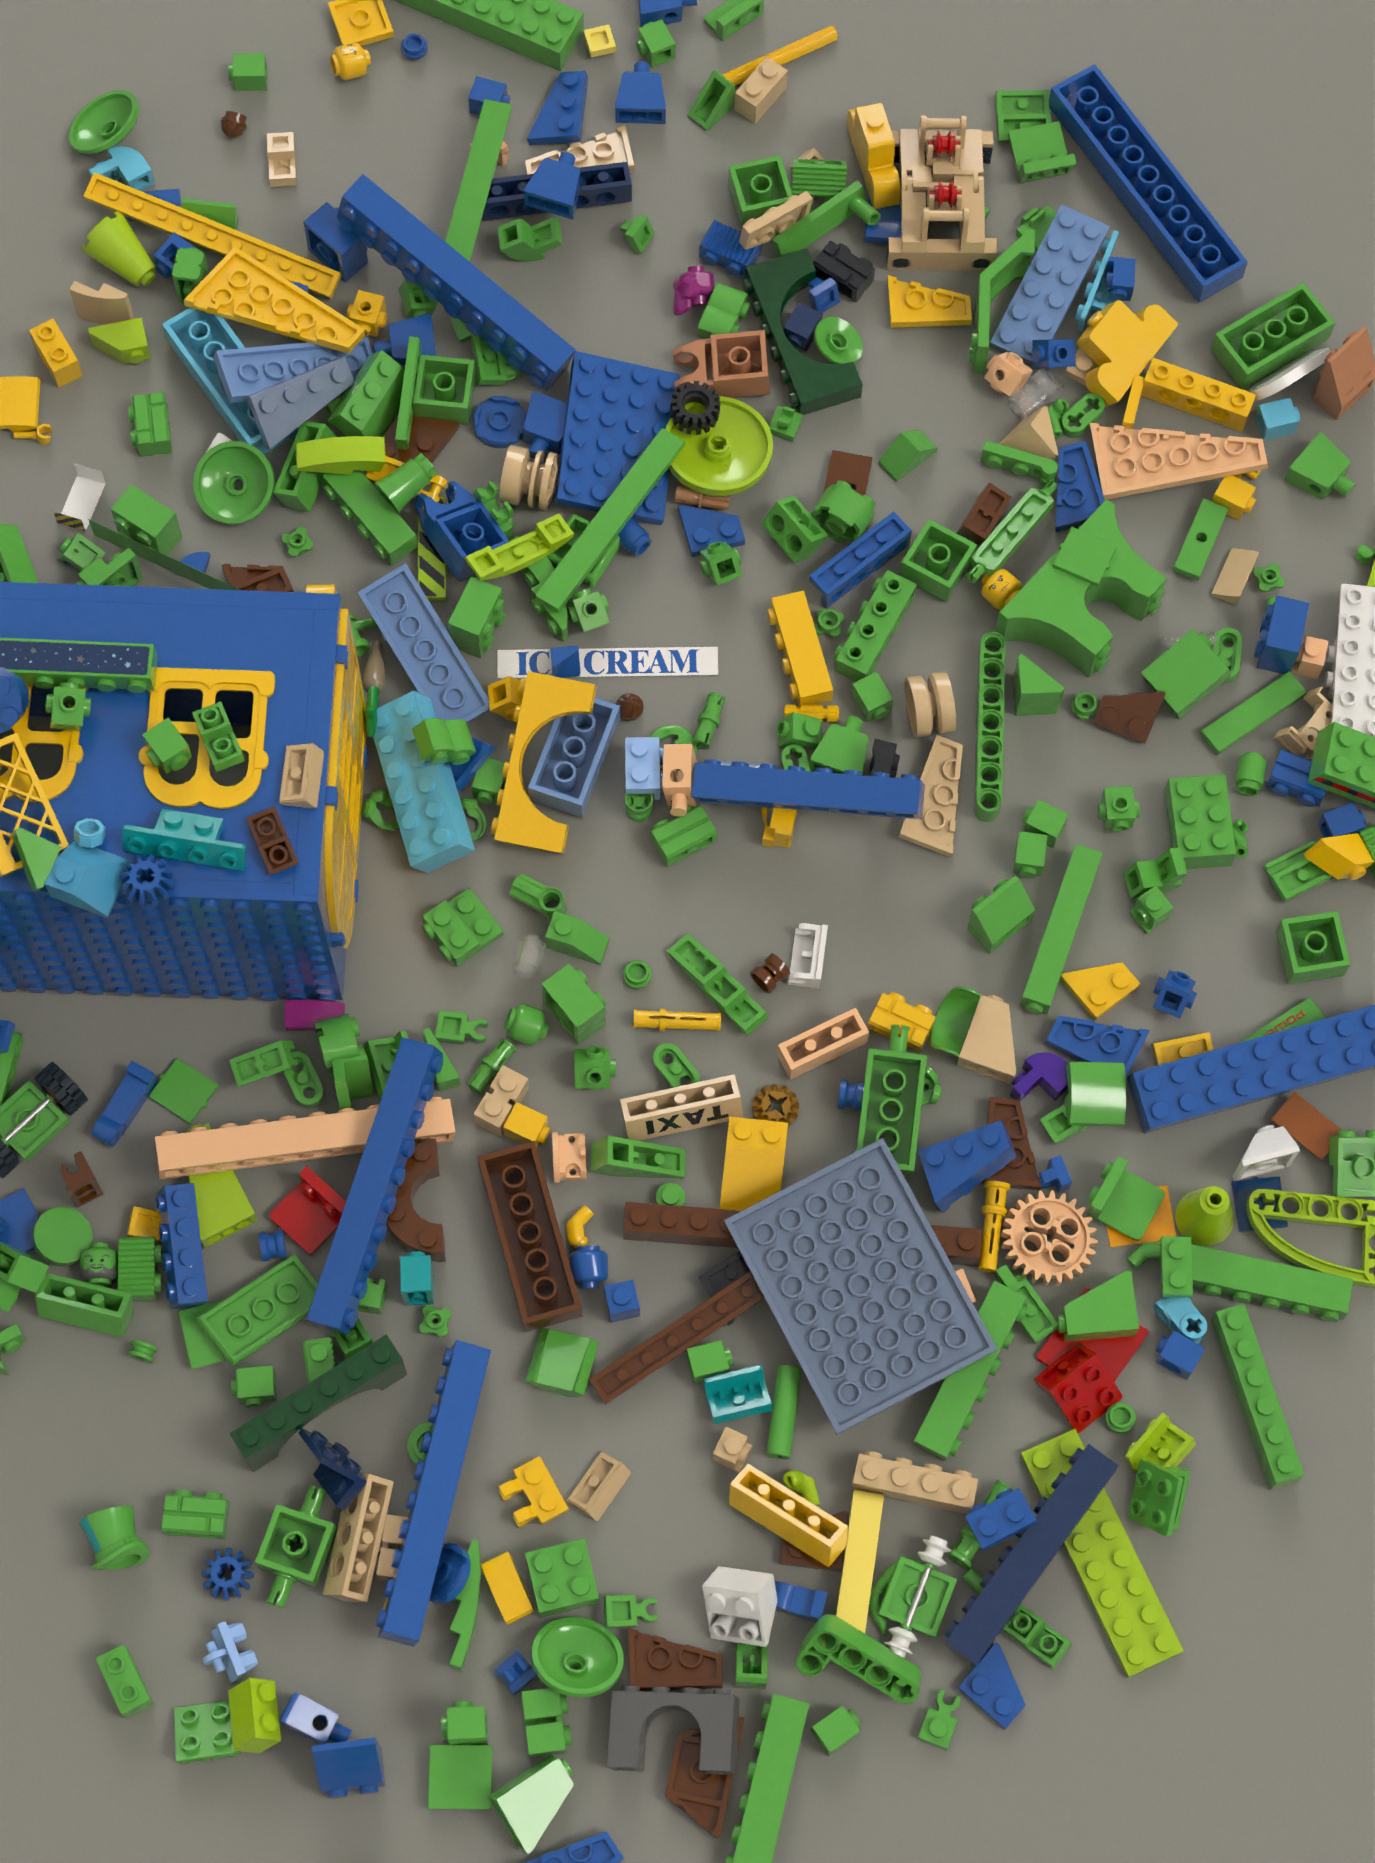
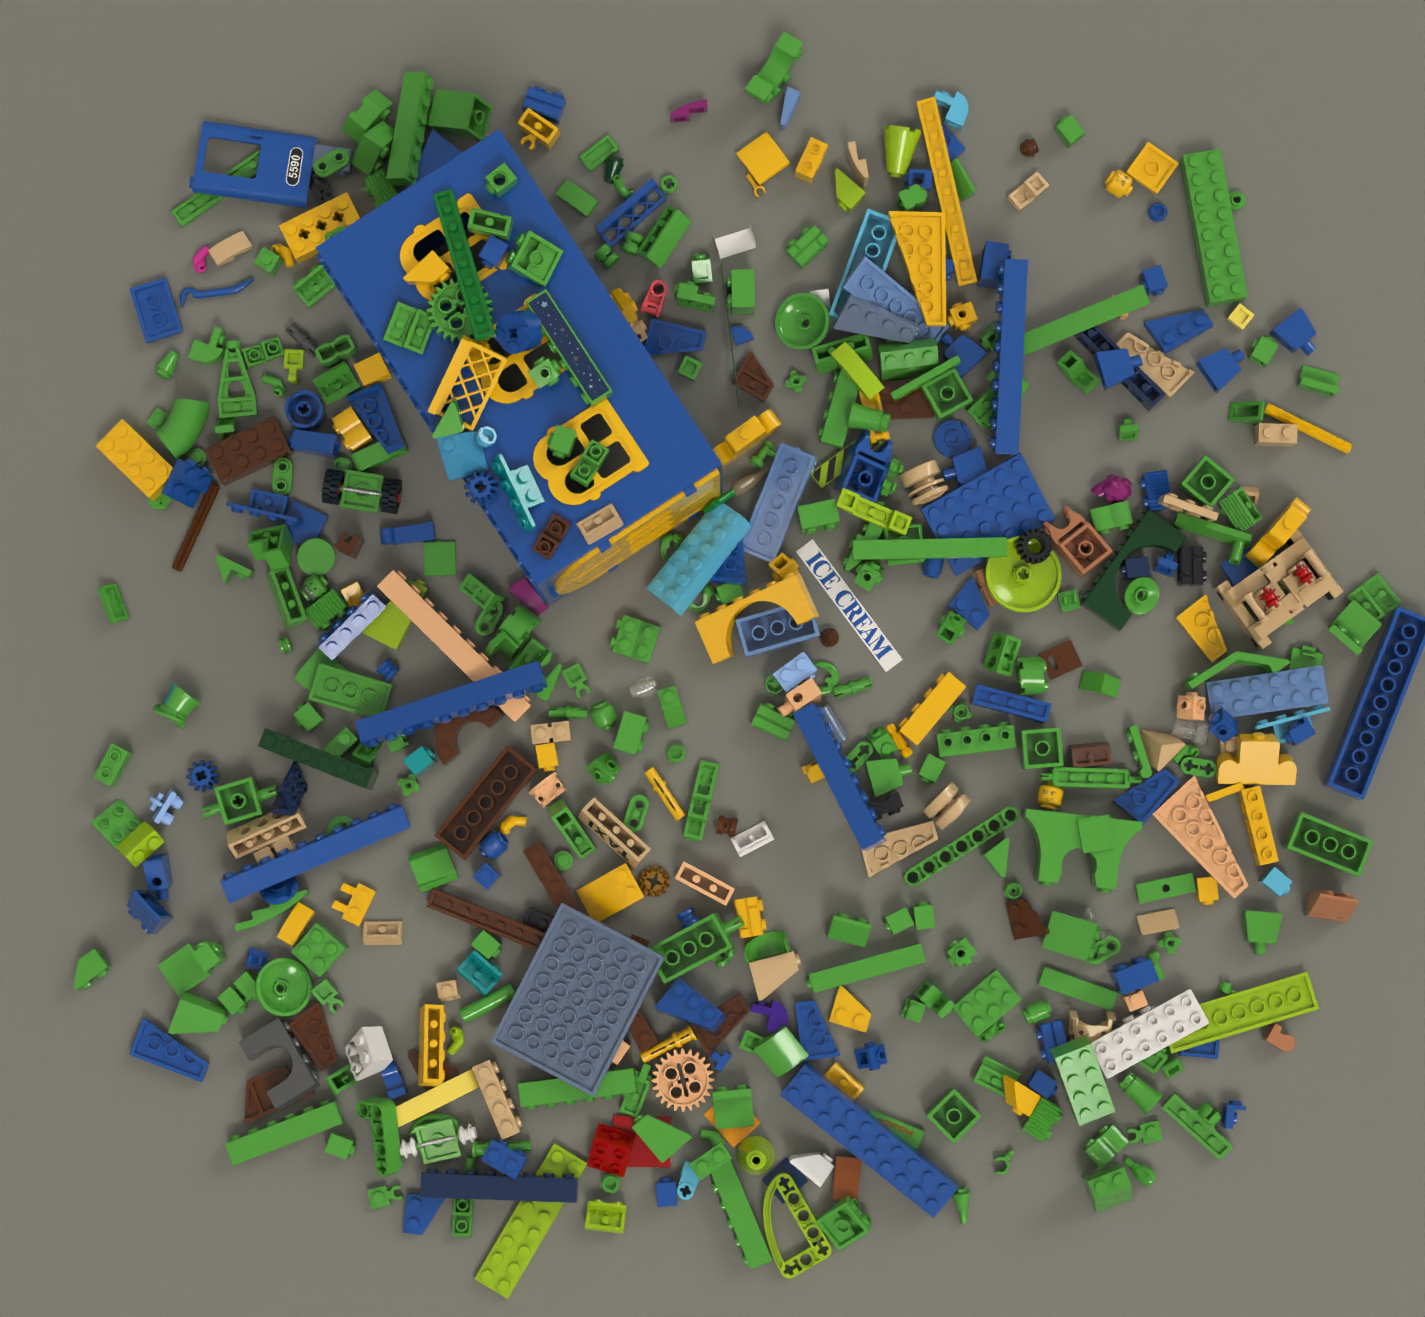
camera: 60 degrees right, 15 degrees up
(104, 122) = (973, 75): bright green dish -> none
(195, 1515) = (220, 737): bright green brick -> none
(309, 1212) = (419, 676): red bracket -> none
(444, 741) = (725, 556): bright green brick -> none
(537, 895) = (680, 665): bright green piece -> none
(565, 661) = (829, 583): blue slope -> none
(1159, 1496) = (578, 1233): bright green bracket -> none
(1257, 1396) = (671, 1249): bright green brick -> none
(1289, 373) = (1308, 871): white tile -> none

